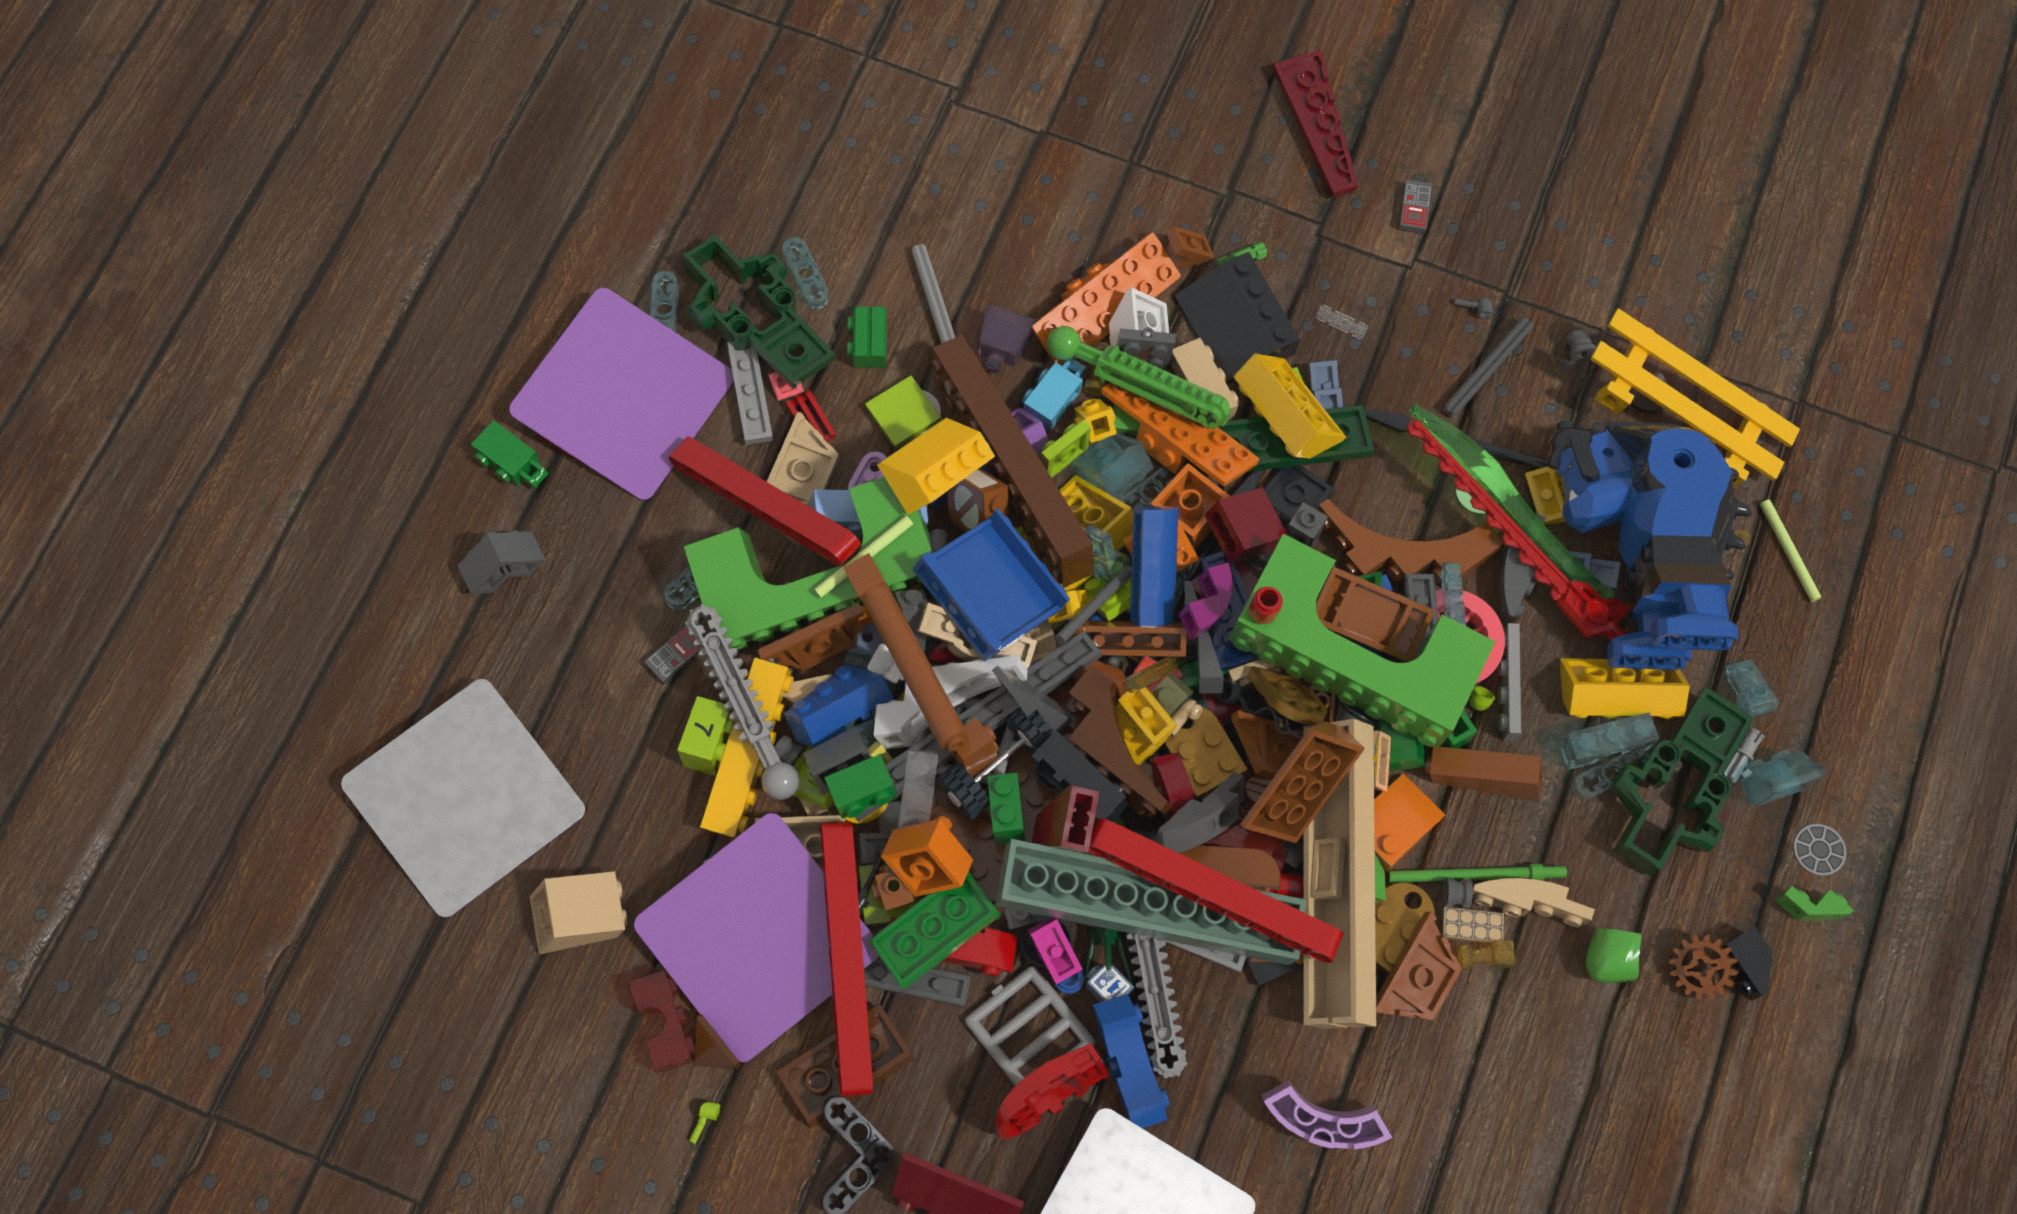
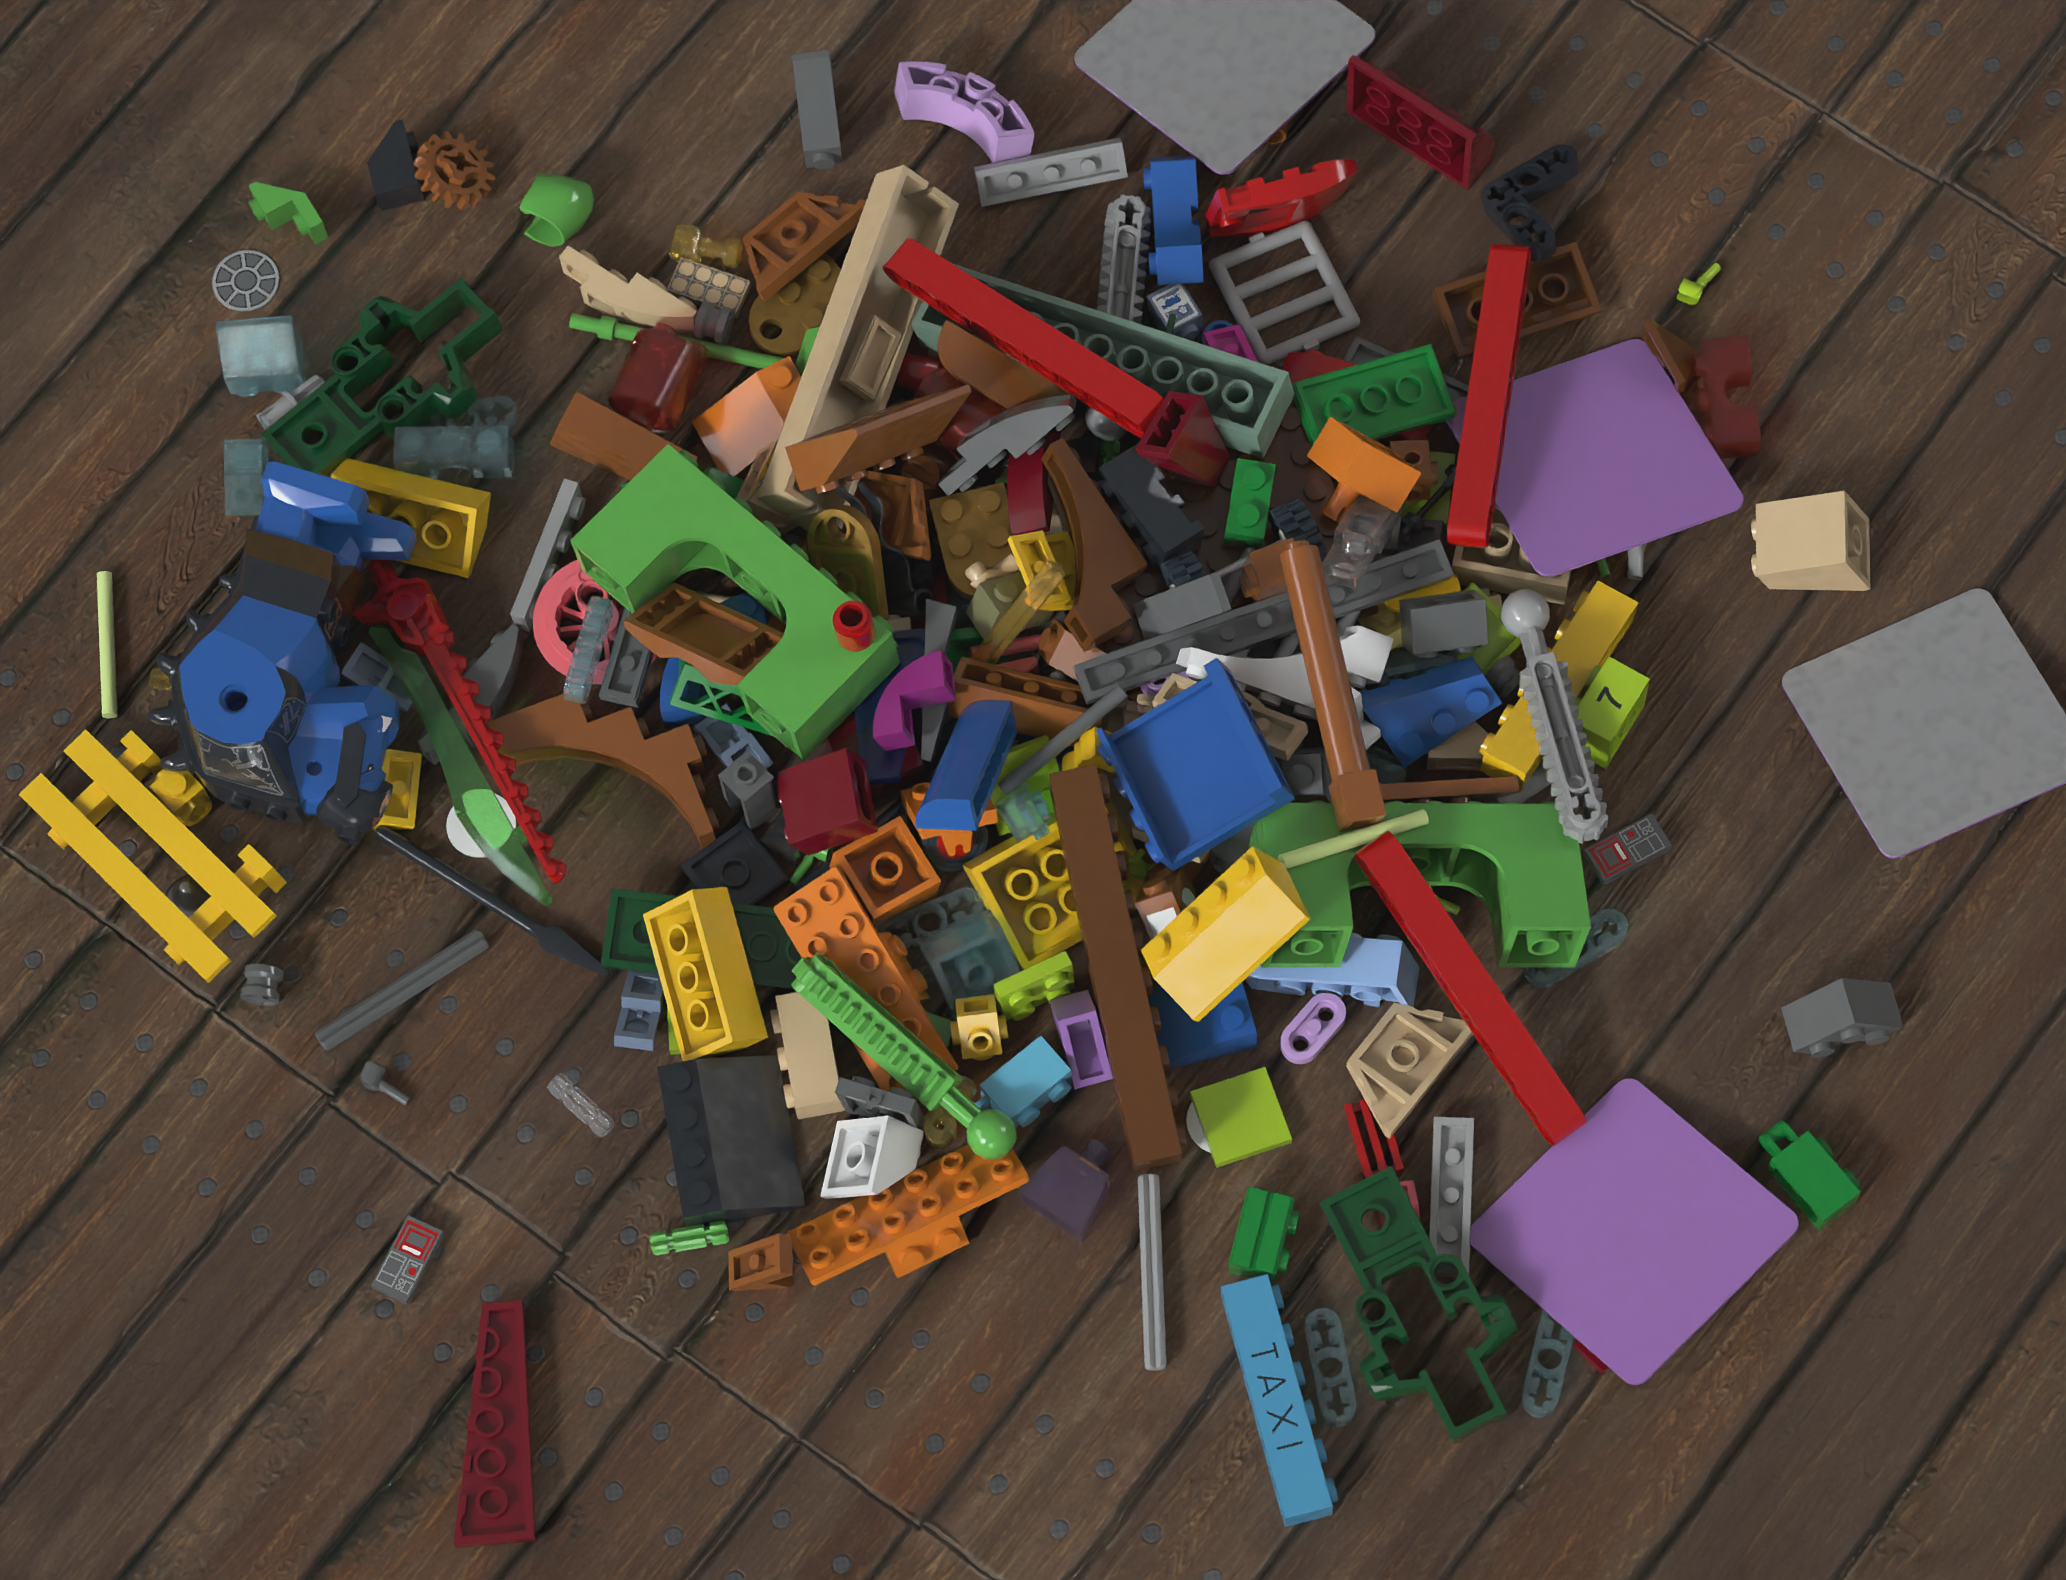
camera: 155 degrees left, 0 degrees up
(834, 240) = (1277, 1401): none -> dark azure brick
(861, 787) = (1425, 563): green brick -> none
(1241, 1086) = (1050, 172): none -> light grey plate
(1441, 1087) = (817, 109): none -> dark grey slope
(1482, 826) = (657, 378): none -> clear red cylinder

